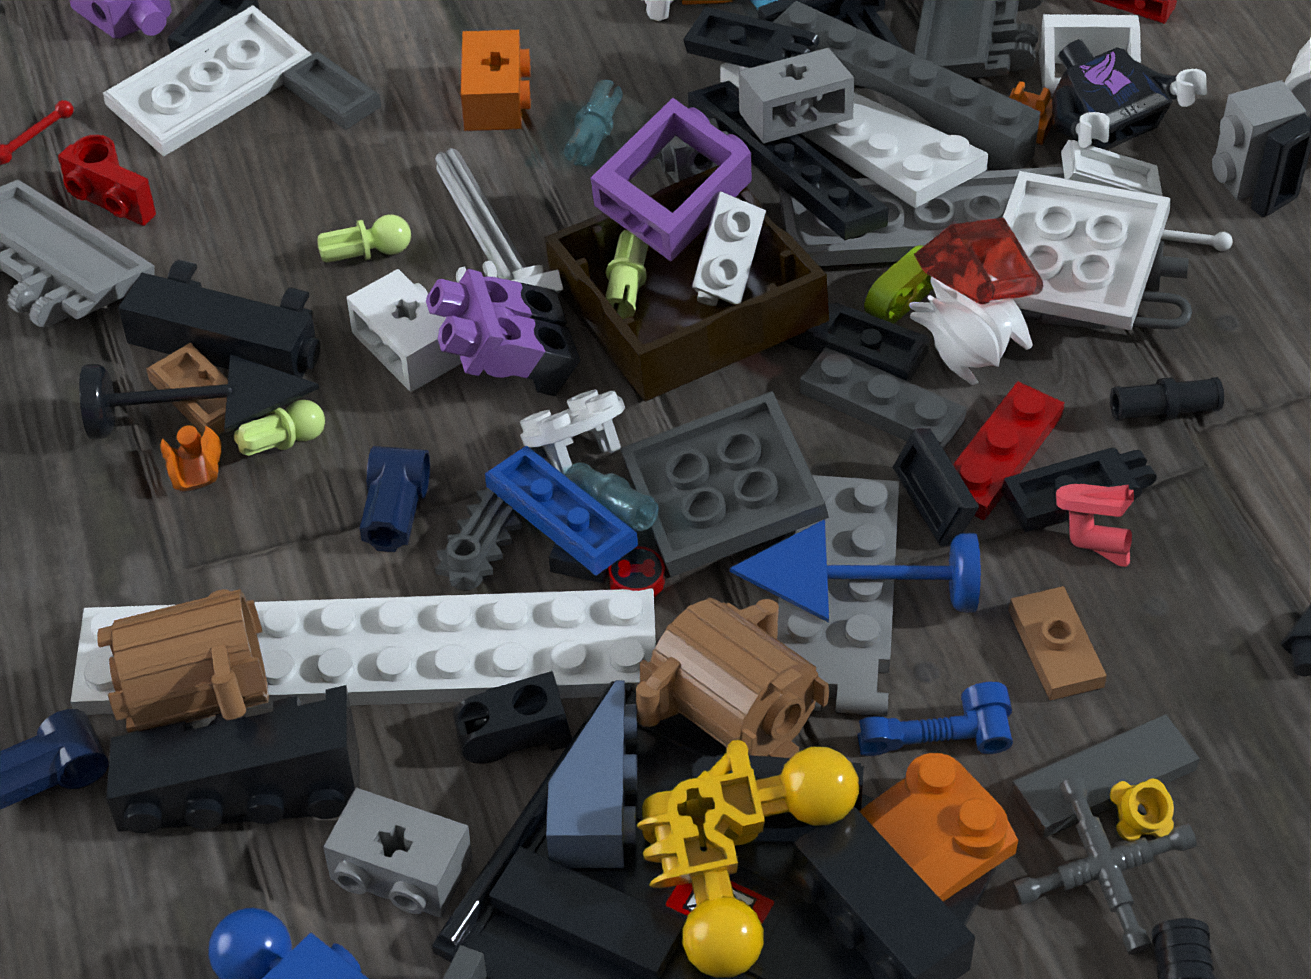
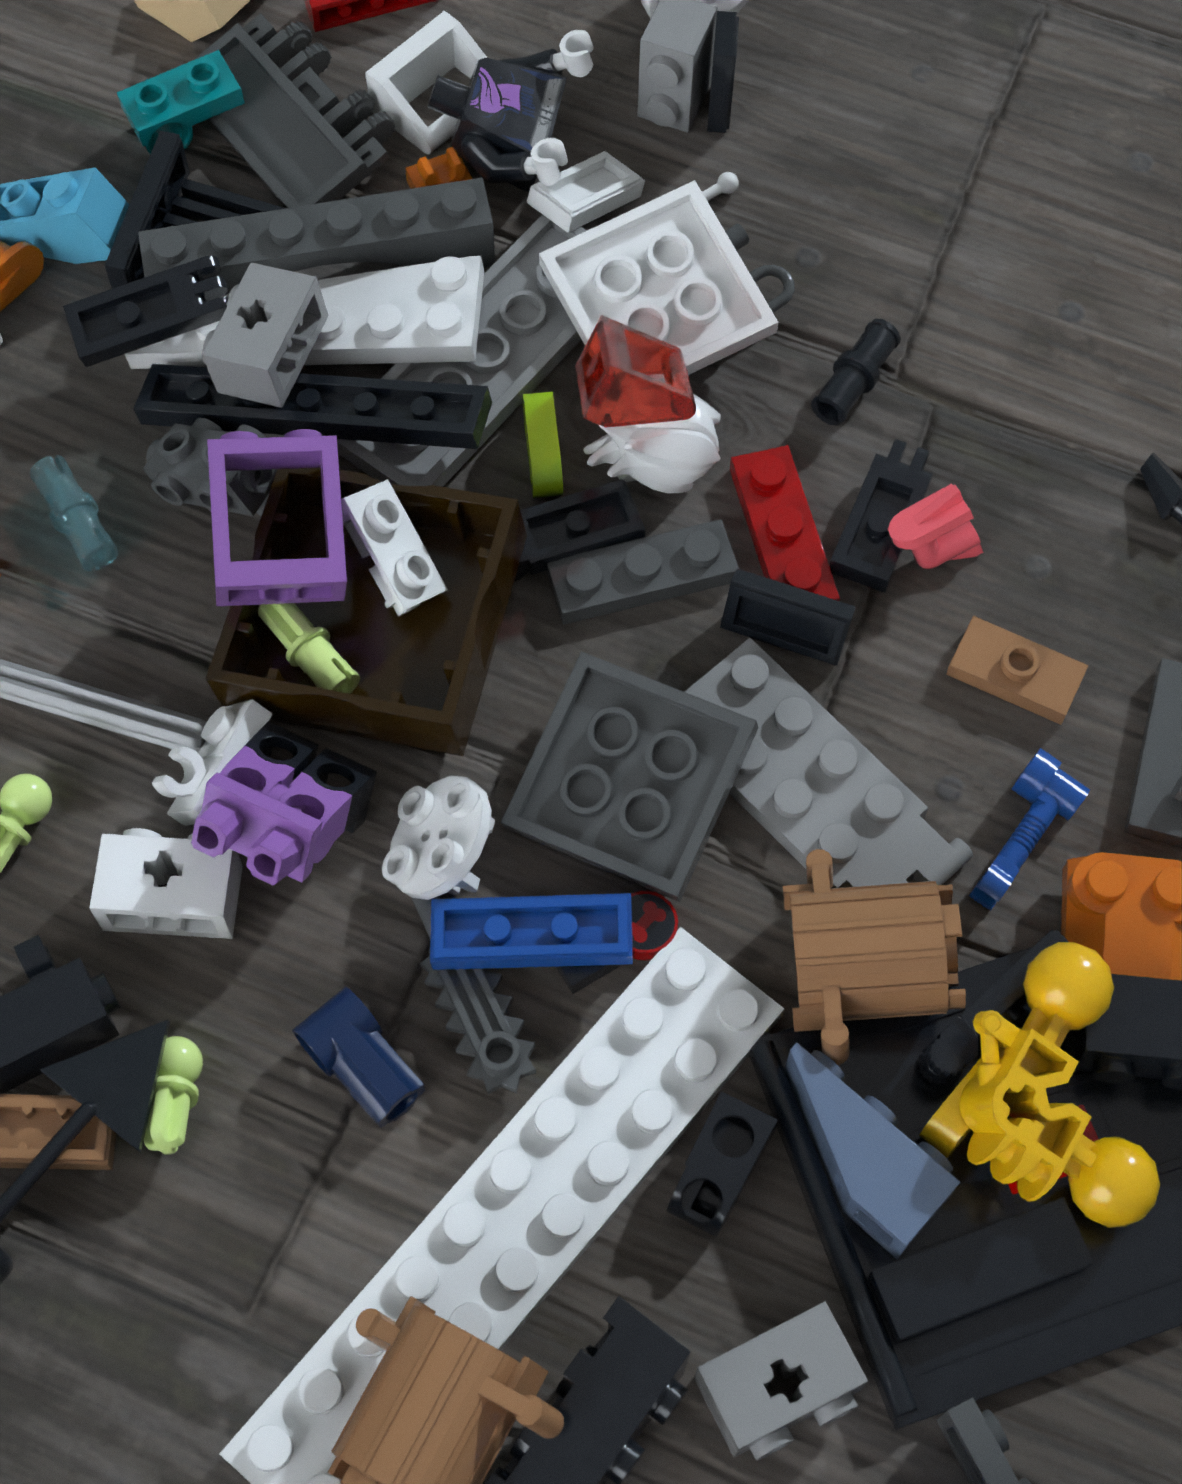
camera: 50 degrees left, 15 degrees up
(196, 459) = (129, 1205): orange arm -> none
(616, 496) = (555, 875): clear light blue pin -> none
(800, 573) = (788, 801): blue piece -> none

